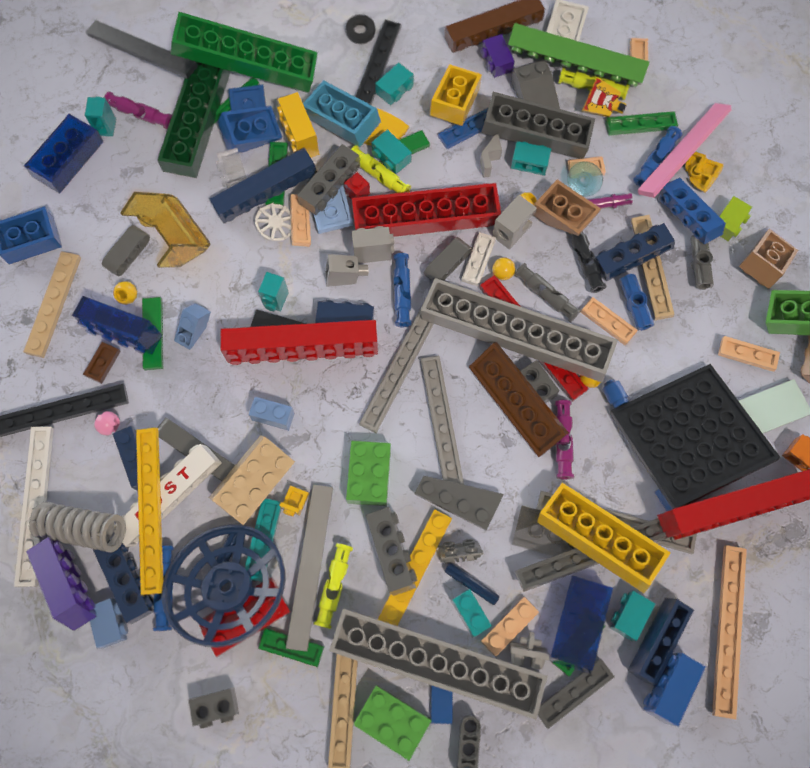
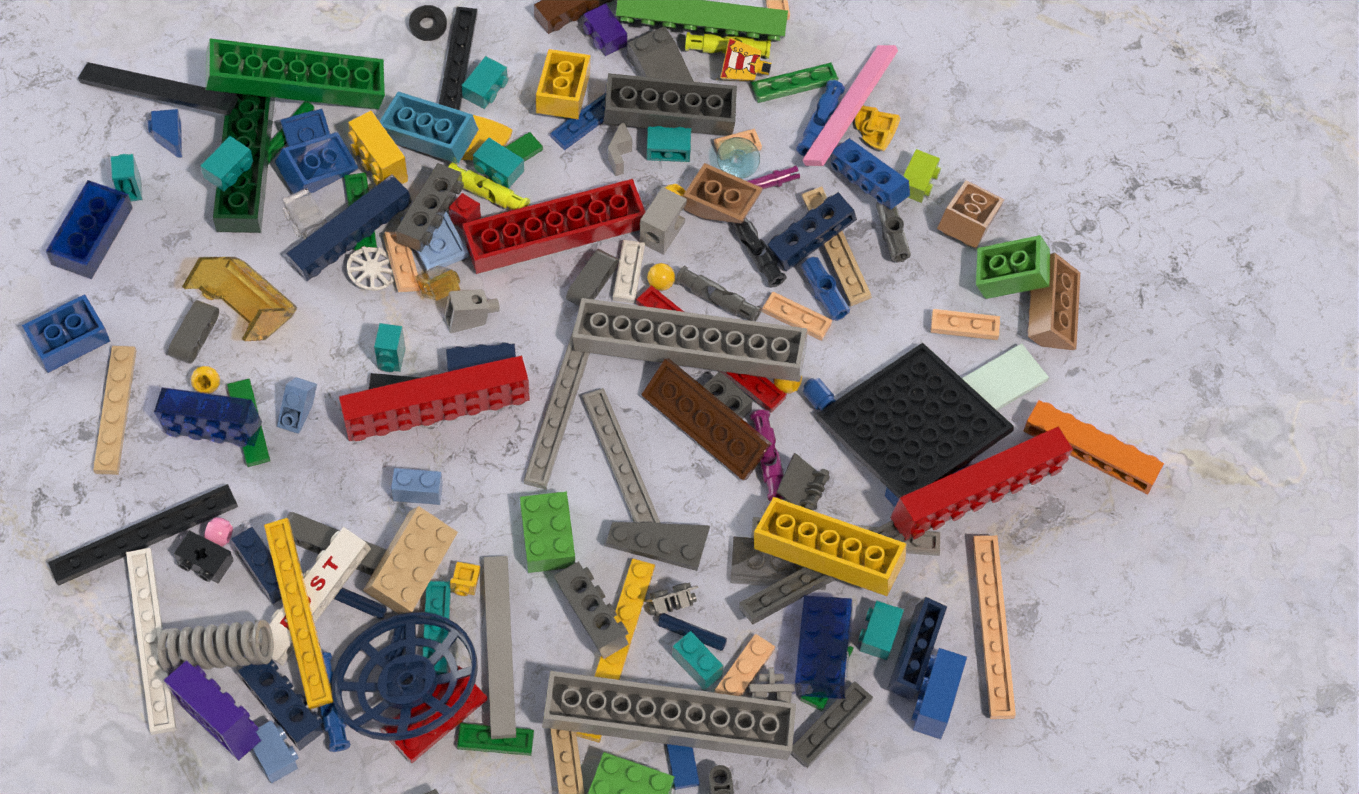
camera: 15 degrees left, 10 degrees down
(85, 433) = (197, 547): none -> black brick
(101, 362) = (194, 466): reddish brown plate -> none
(128, 106) = (154, 160): magenta piece -> none
(143, 83) = (167, 130): none -> blue slope
(176, 117) = (227, 163): none -> teal brick
(207, 505) = (361, 603): none -> dark blue axle
(323, 243) = (438, 282): none -> clear yellow brick
(337, 571) = (532, 646): neon yellow piece -> none
(373, 244) = (499, 273): light grey brick -> none
(402, 287) = (544, 321): blue piece -> none
(588, 472) = (802, 483): none -> dark grey hinge

